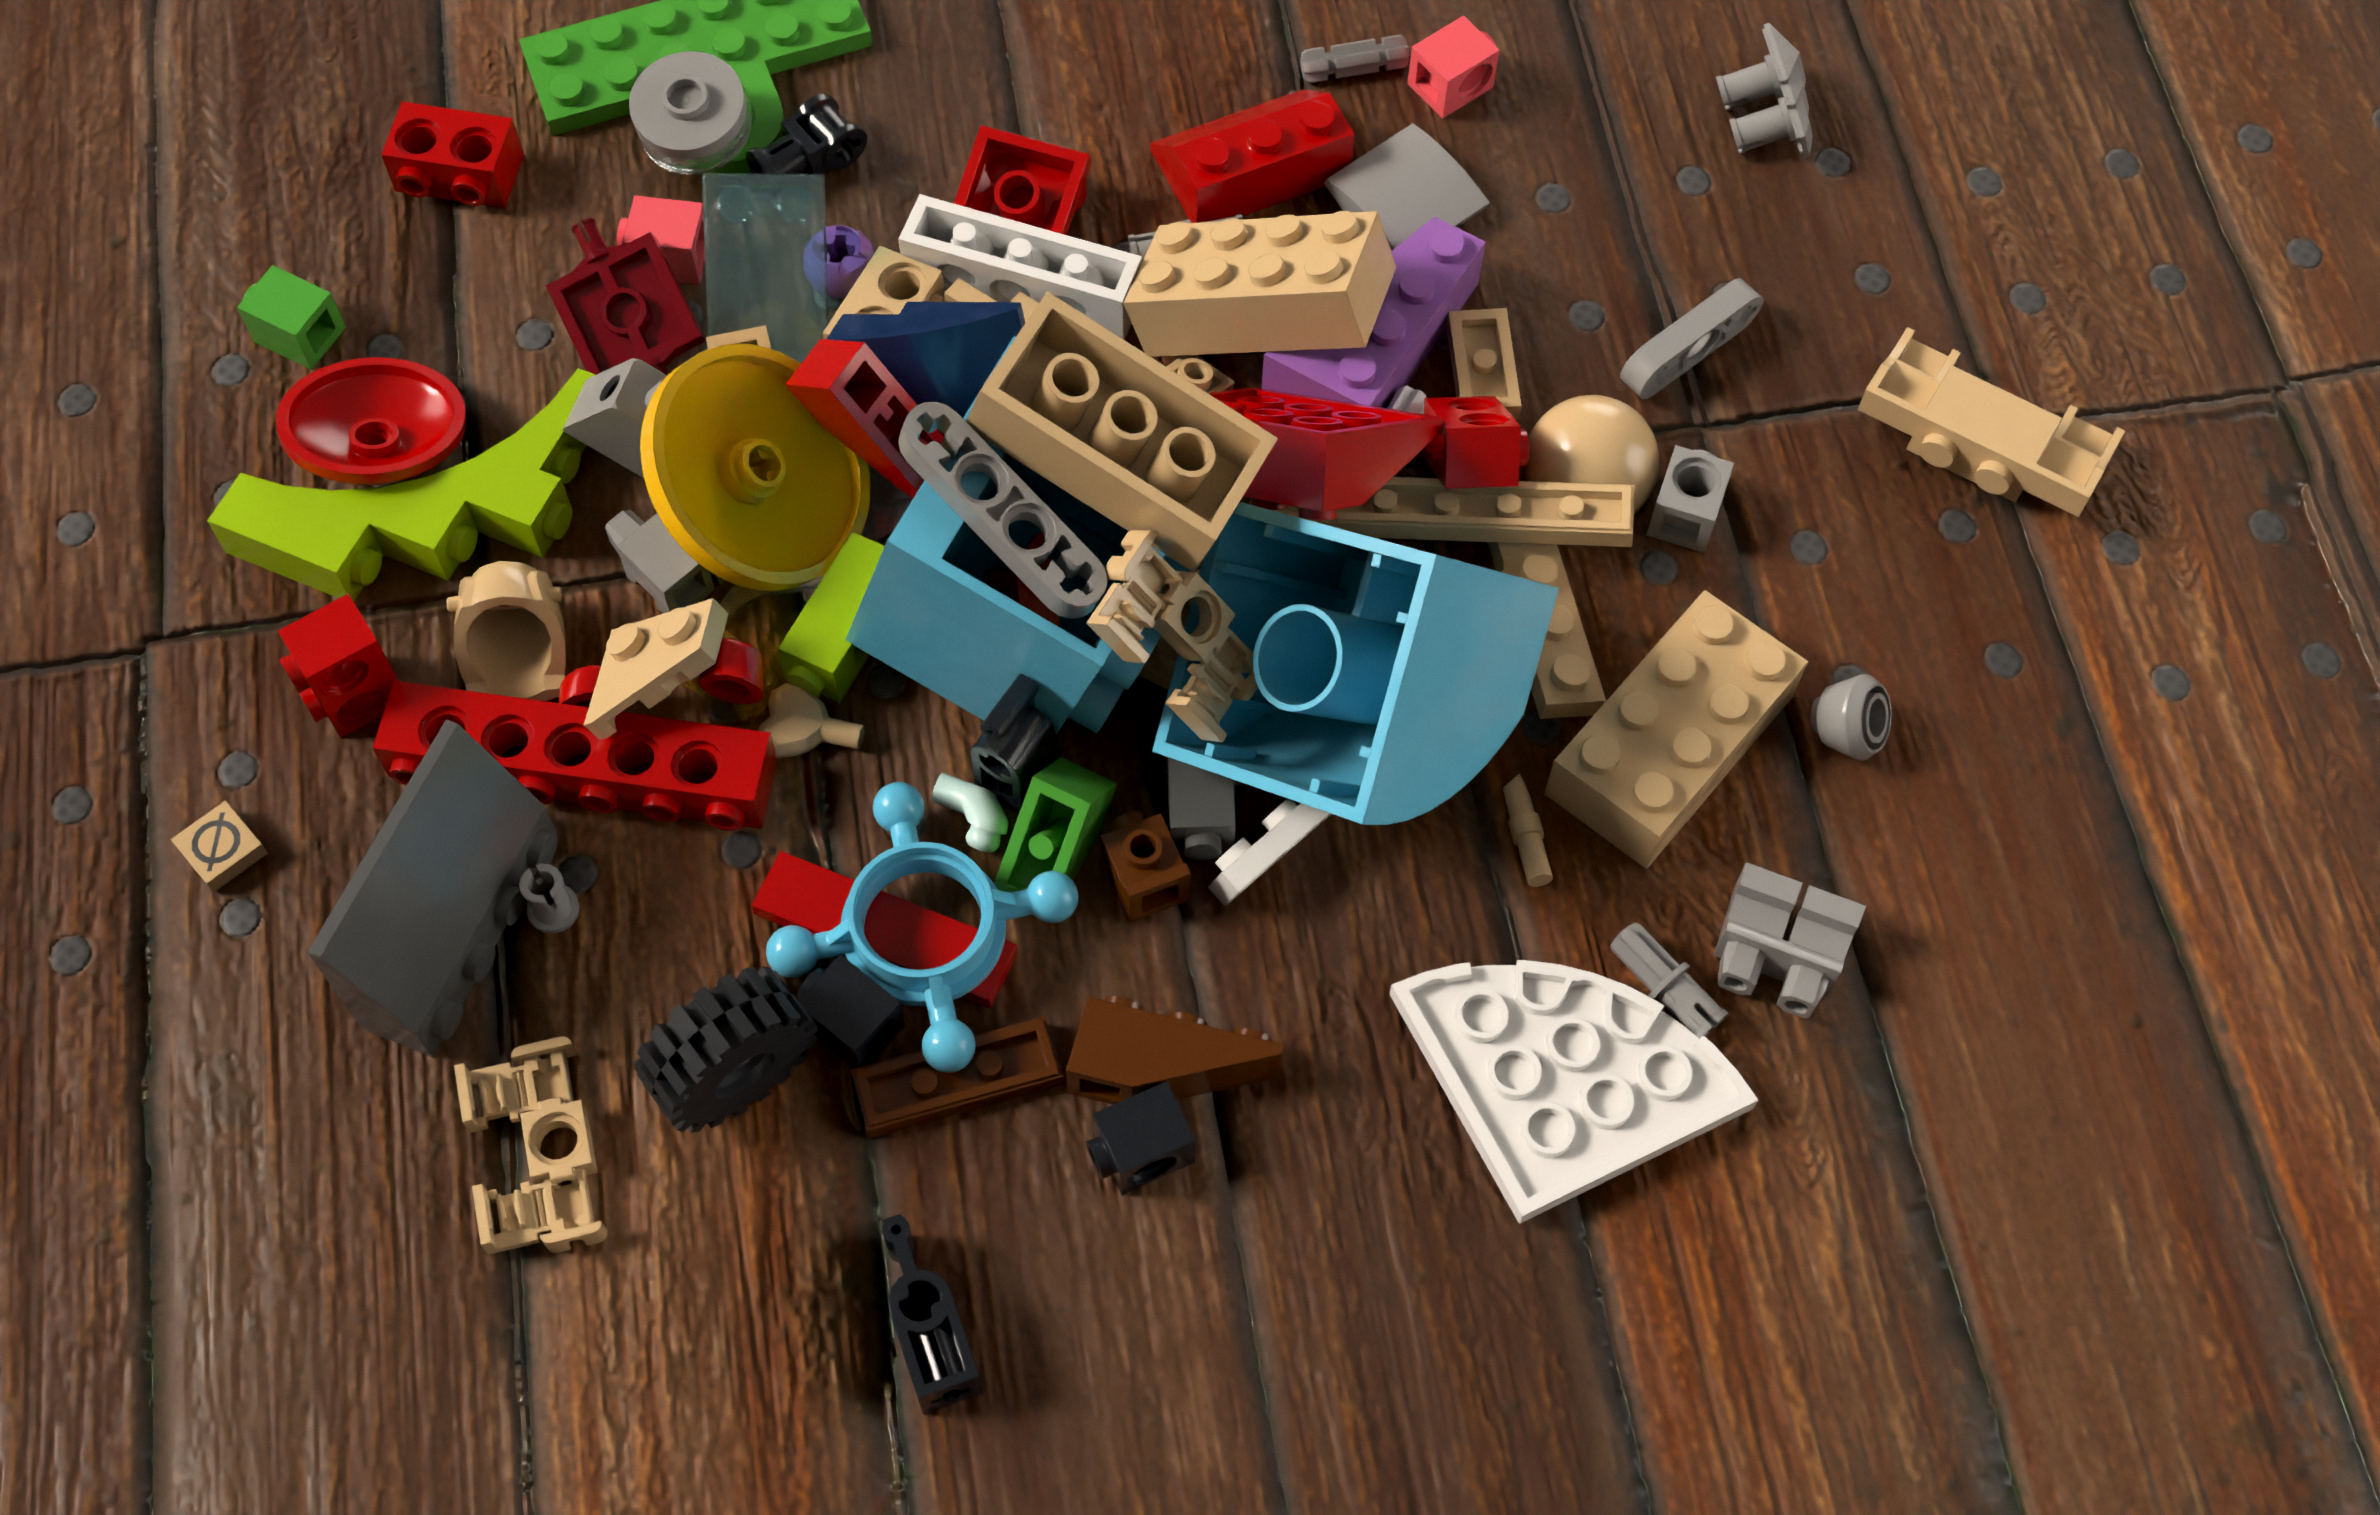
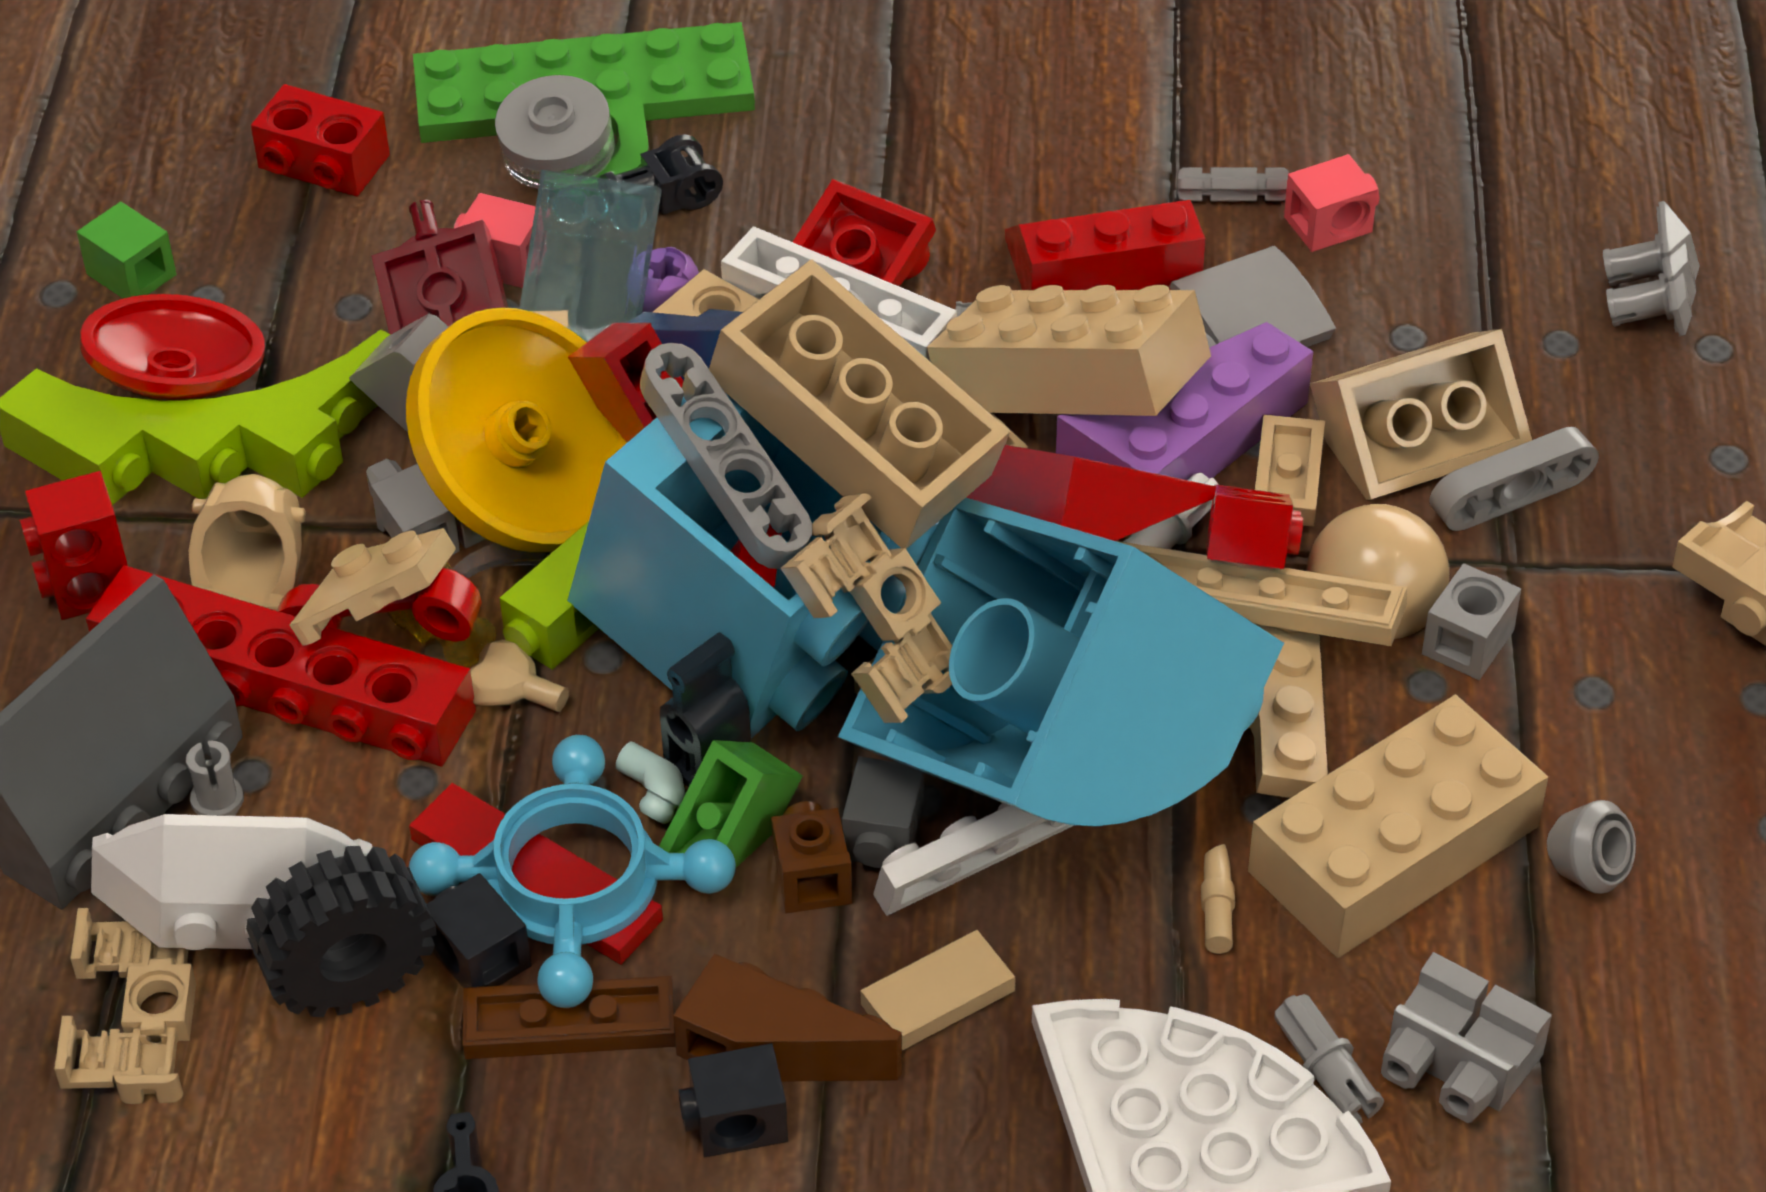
camera: 15 degrees right, 15 degrees down
(587, 1019) = (199, 875): none -> white wedge
(1295, 978) = (939, 988): none -> tan tile
(1593, 281) = (1423, 412): none -> tan slope

